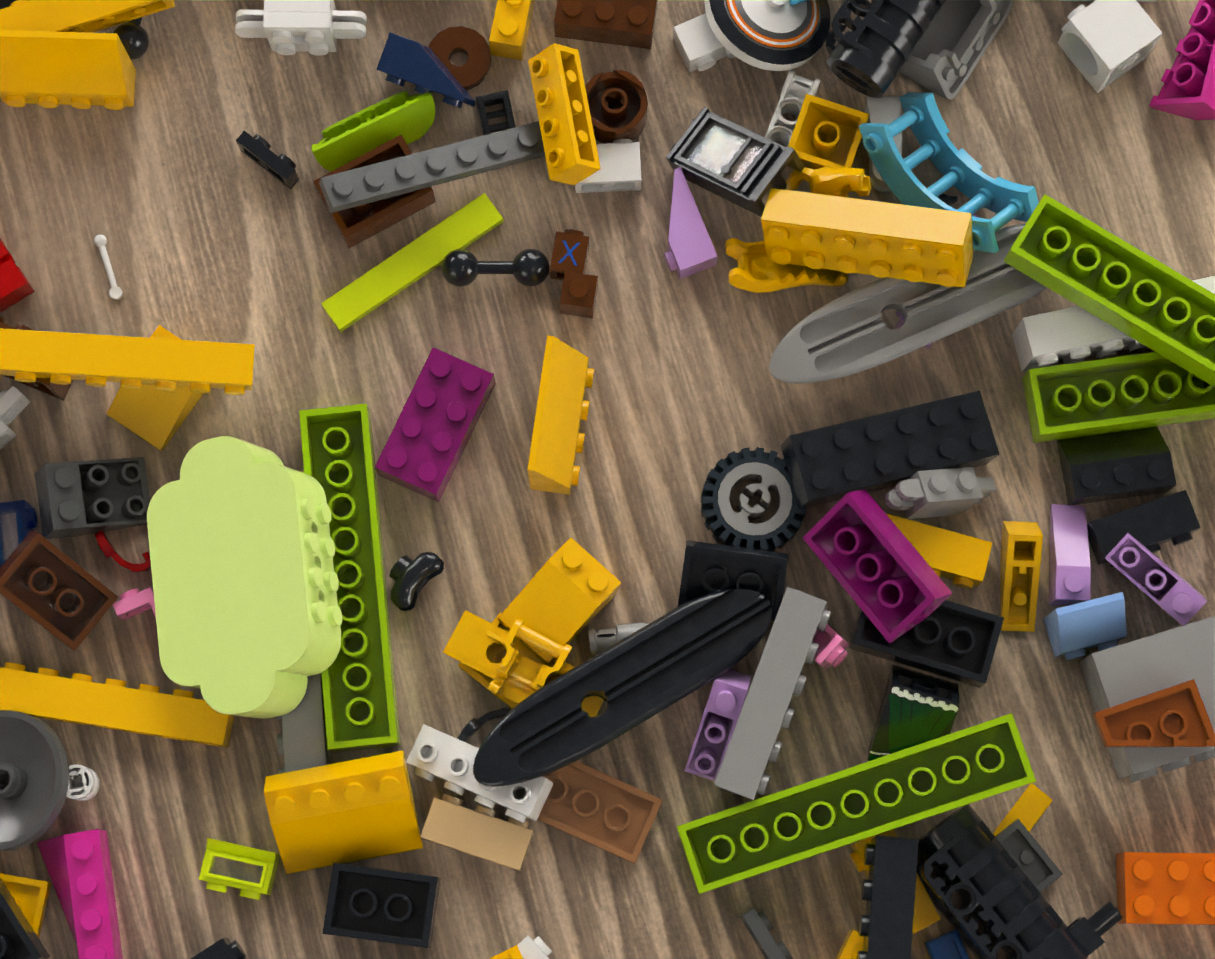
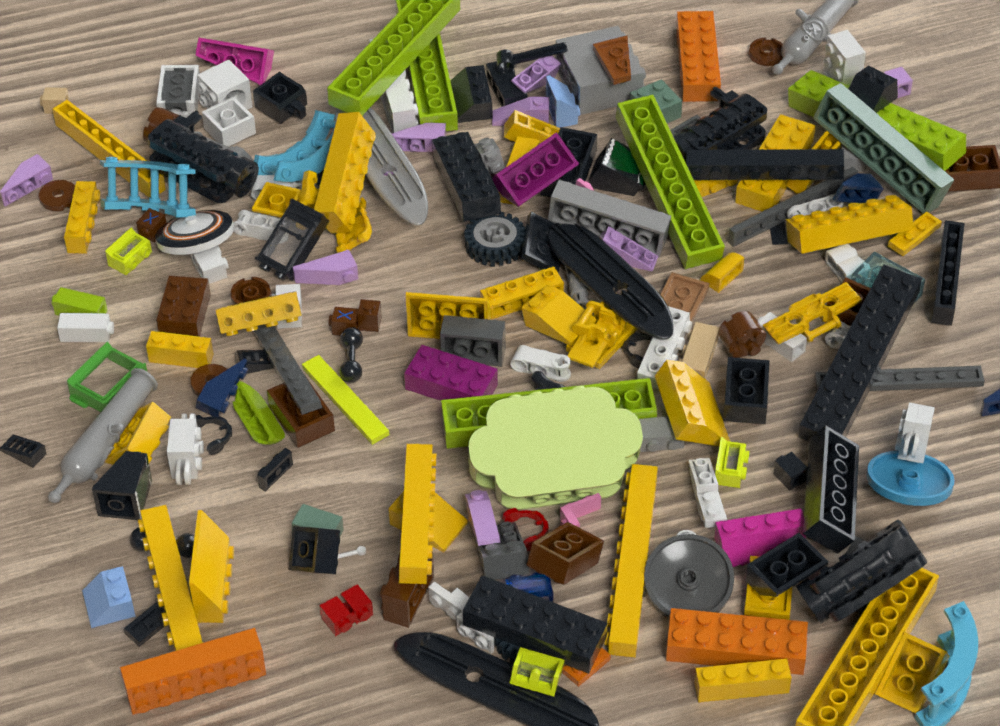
camera: 90 degrees left, 30 degrees down
(92, 220) = (314, 550): none -> black slope
(130, 466) = (481, 517): none -> lavender slope
(152, 225) = (317, 518): none -> sand green brick
(176, 823) = (706, 492): none -> white slope
(354, 91) = (217, 445): none -> black piece
(467, 568) = (551, 364): none -> white piece
(500, 909) = (742, 335): none -> reddish brown brick
(504, 458) = (474, 339): none -> dark grey brick
(625, 542) = (514, 294): none -> yellow brick
(670, 889) = (724, 271): none -> yellow brick
(1003, 379) = (419, 137): none -> lavender slope
(1034, 50) = (229, 122): none -> white brick
(1088, 799) = (667, 100): none -> sand green brick
(1094, 152) = (281, 98): none -> black hinge
(1179, 527) = (507, 60): none -> black axle

